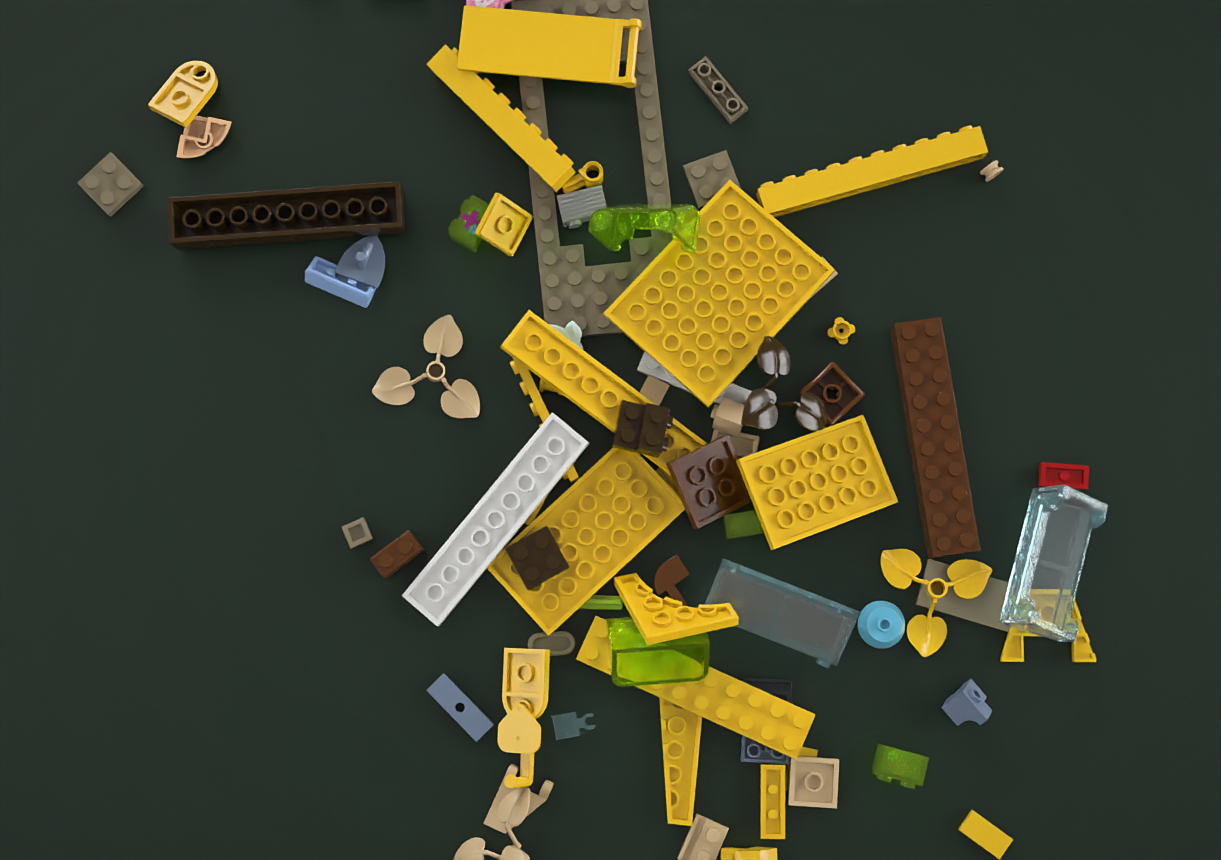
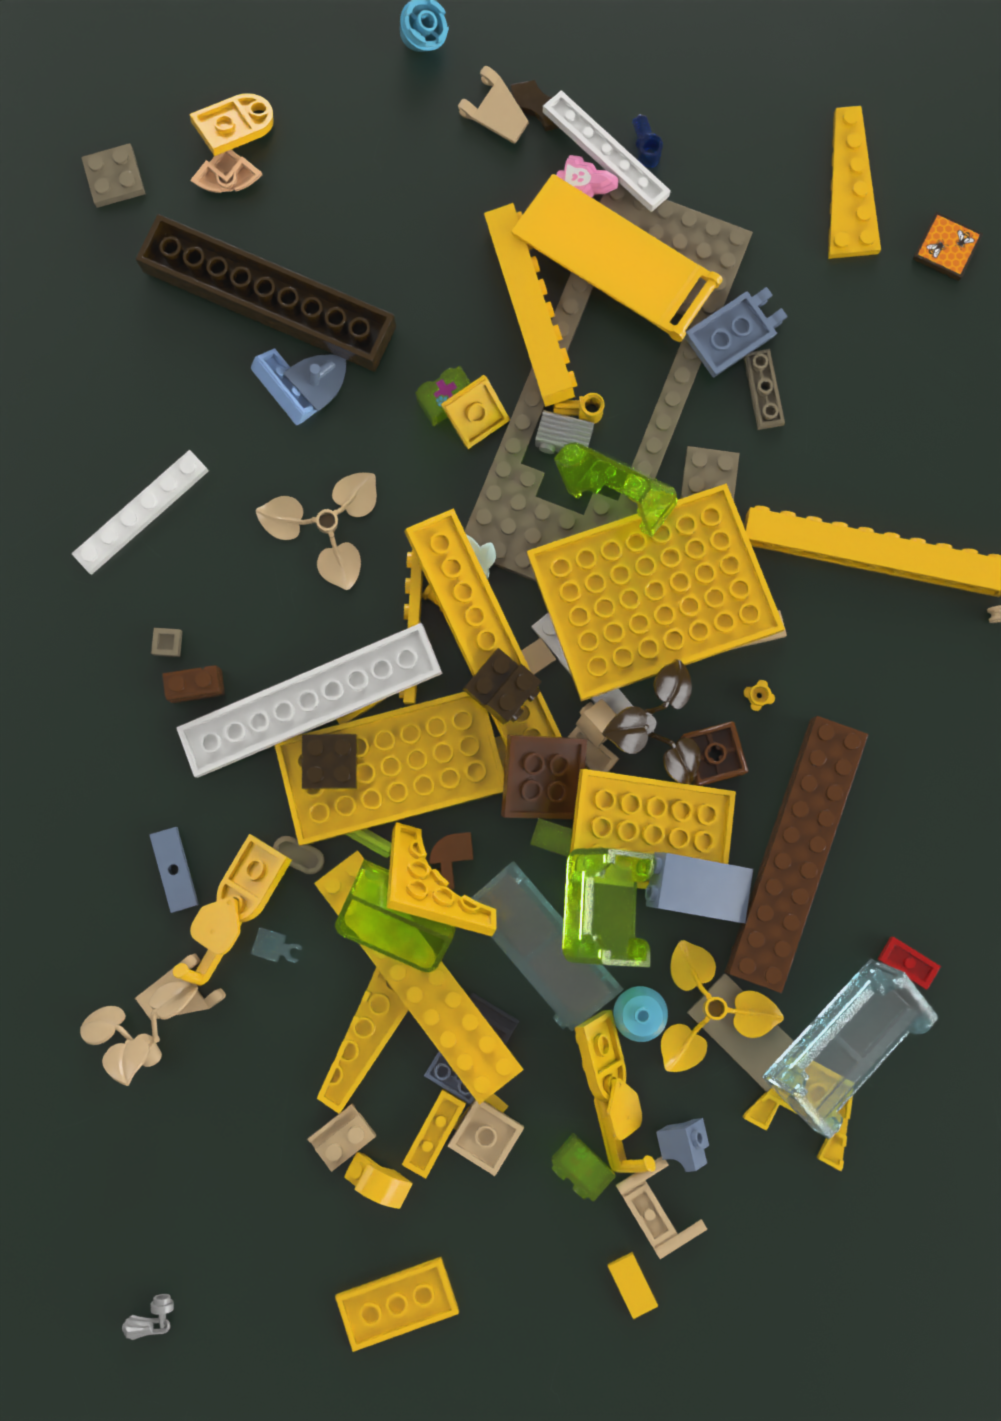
camera: 25 degrees right, 0 degrees up
(279, 441) = (140, 512): none -> white plate
(671, 57) = (734, 331): none -> sand blue tile
(811, 556) = (603, 907): none -> clear neon green windscreen
(874, 503) = (699, 887): none -> sand blue panel
(883, 688) = (614, 1100): none -> yellow plate
(971, 773) = (651, 1214): none -> tan plate

